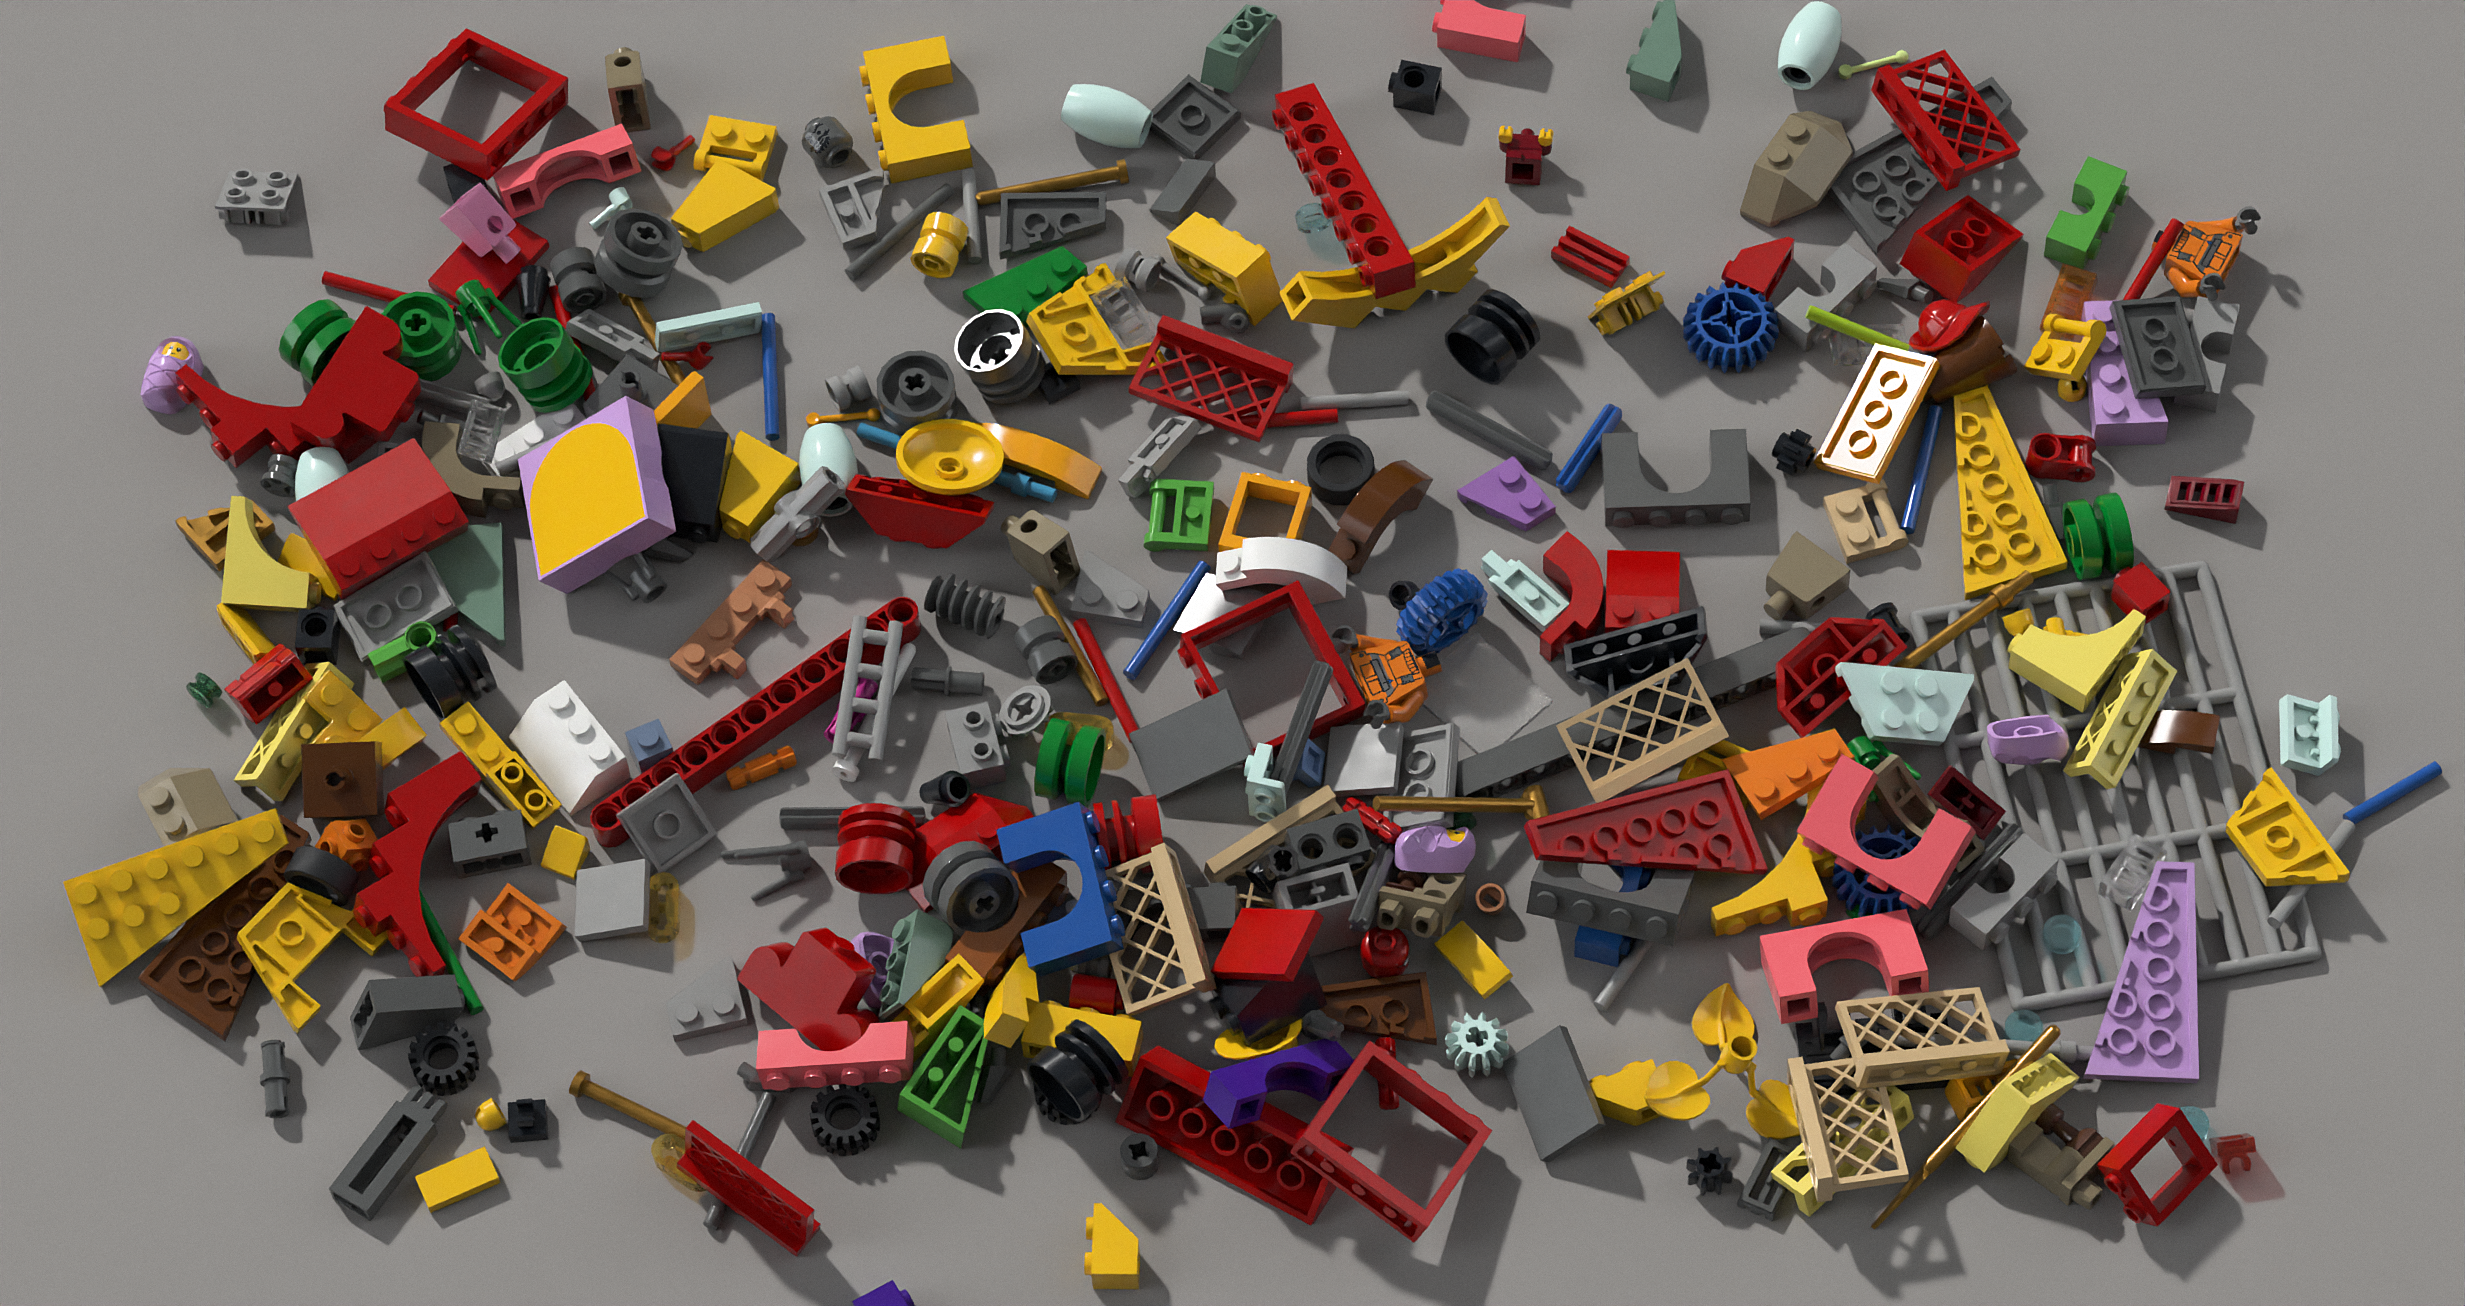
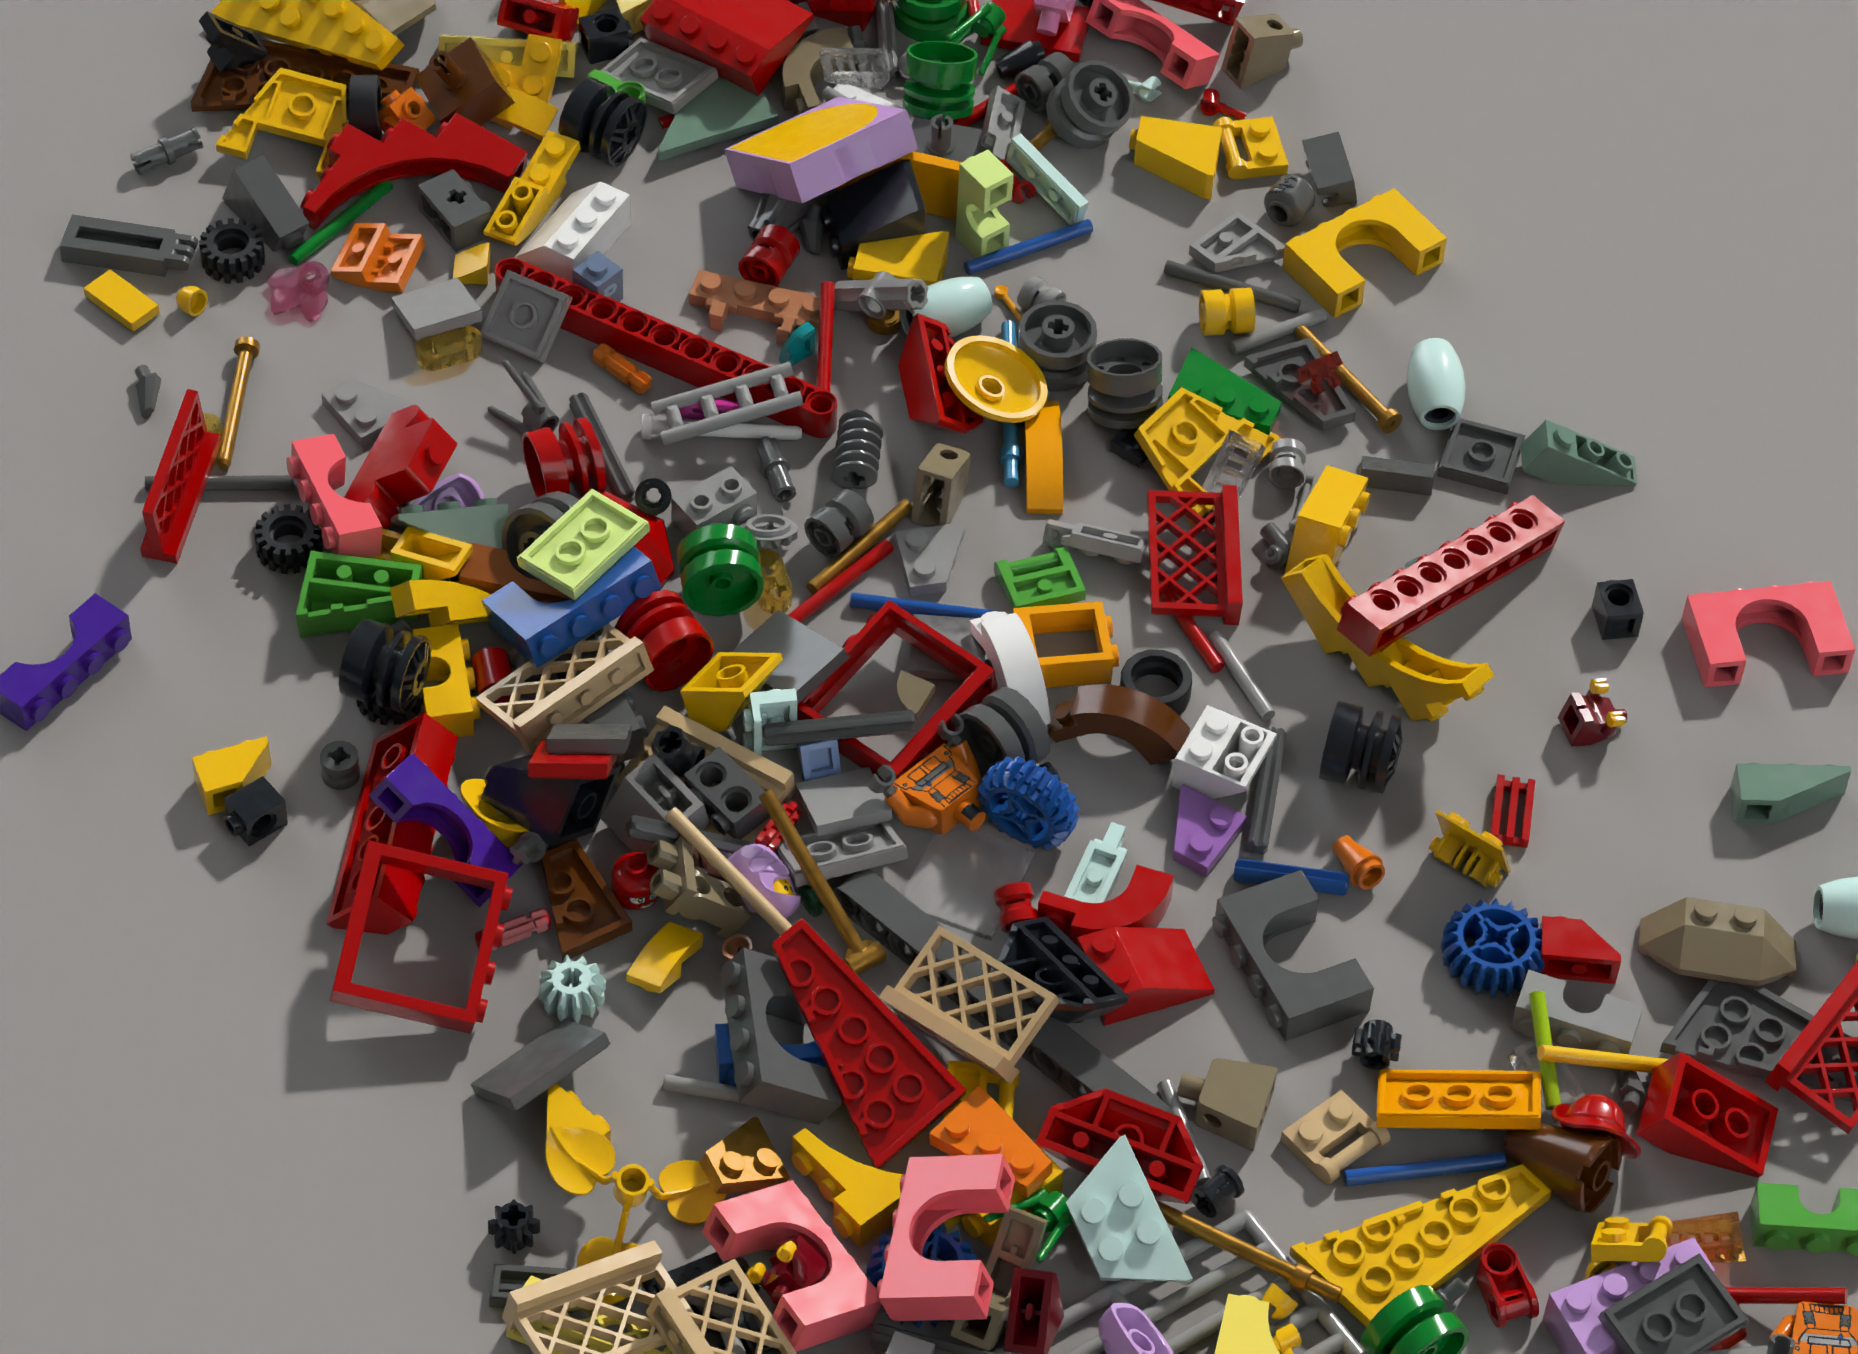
camera: 60 degrees right, 10 degrees down
(173, 971) = (230, 43): none -> black slope
(524, 1019) = (296, 291): none -> clear pink plate
(527, 1120) = (198, 327): black tile -> none
(588, 1189) = (147, 389): none -> dark grey bar
(688, 592) = (769, 255): none -> red wheel
(732, 386) = (981, 188): none -> yellowish green arch
(802, 92) = (1330, 169): none -> dark grey hinge
(808, 609) = (799, 345): none -> teal tile
(814, 583) = (825, 338): none -> red bar
(1028, 852) = (583, 544): none -> yellowish green tile
(1055, 198) = (1320, 369): none -> clear red tile
(1165, 1243) = (255, 811): none -> black brick
(1209, 799) = (723, 687): none -> yellow slope
(1247, 925) = (589, 738): none -> dark grey tile
(1292, 654) = (914, 693): none -> dark tan tile
(1361, 598) = (1004, 727): none -> dark grey wheel
(1449, 446) = (1221, 754): none -> white slope
(1518, 844) = (727, 871): none -> tan bar
(1540, 666) = (1015, 904): none -> red wheel
(1598, 391) = (1361, 865): none -> orange cone
(1714, 968) = (744, 1161): none -> pearl gold wing
(1852, 969) = (793, 1268): none -> dark red piece
(1883, 288) = (1598, 1058): none -> yellow bar

